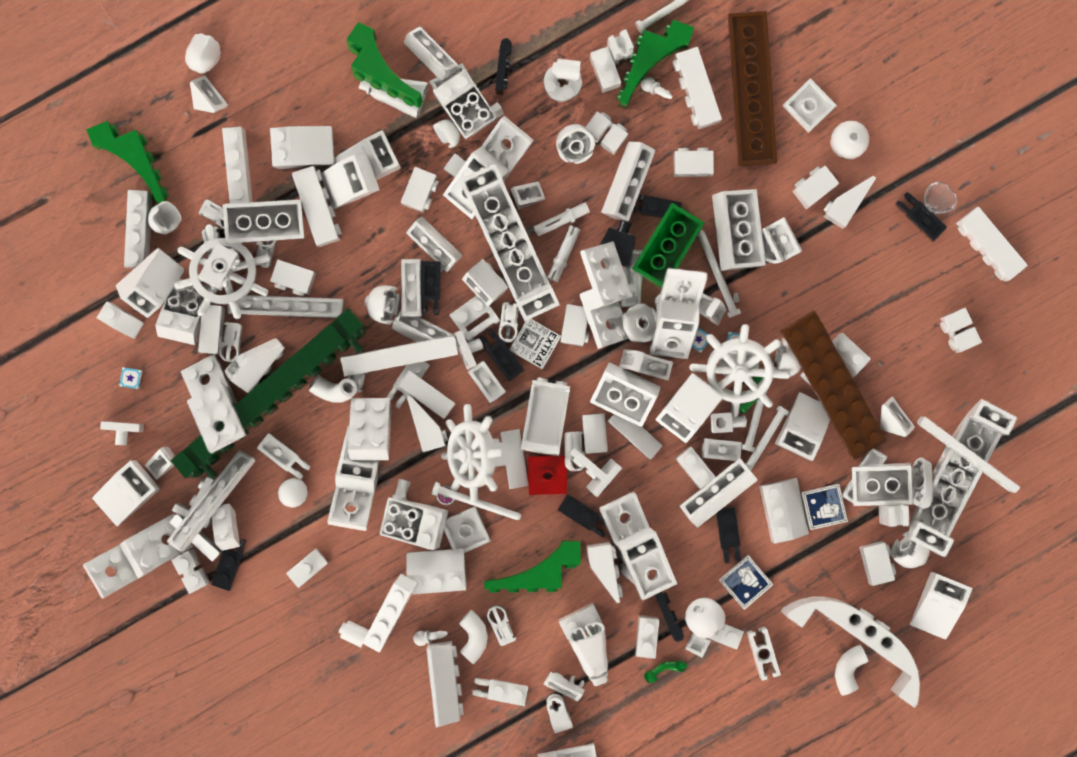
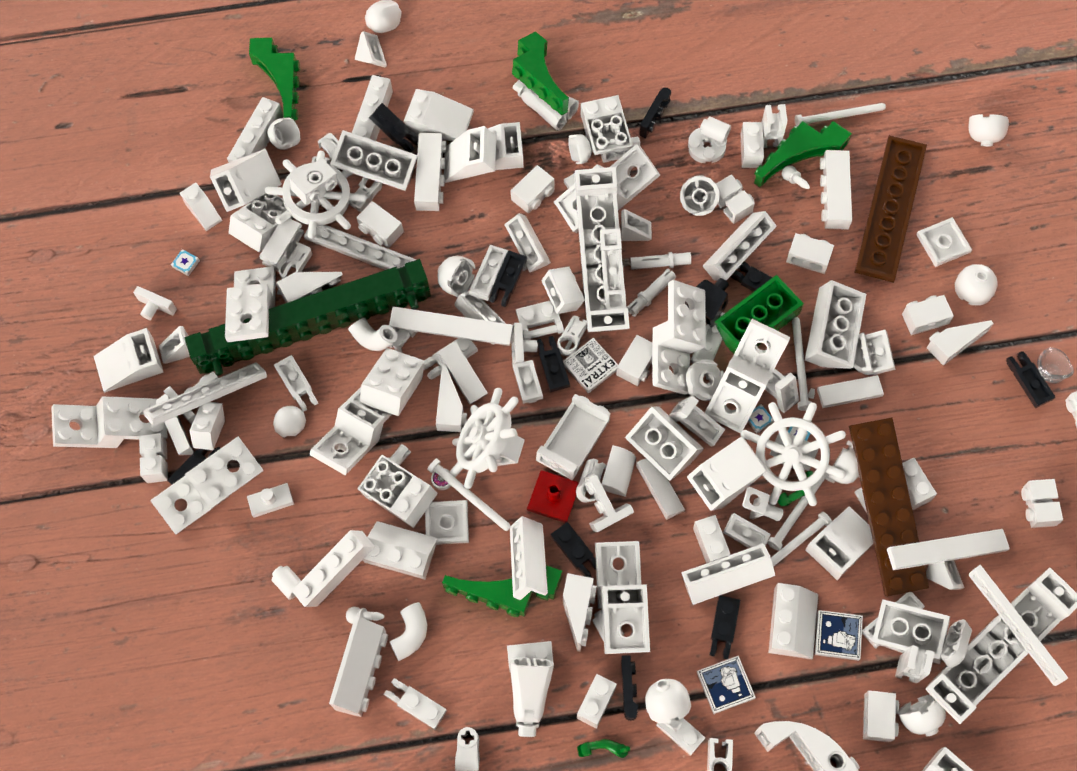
camera: 15 degrees right, 20 degrees down
(250, 580) = (207, 485): none -> white bracket
(264, 174) = (394, 127): none -> black hinge
(430, 53) = (590, 79): white slope -> none
(501, 628) = (444, 636): white piece -> none
(516, 469) = (525, 469): white slope -> none
(525, 255) = (612, 269): none -> white slope
(548, 542) = (527, 558): none -> white panel
(558, 683) = (485, 722): white plate -> none
(697, 645) = (649, 734): white tile -> none
(769, 284) = (850, 391): none -> white tile
(893, 403) = (947, 549): none -> white tile

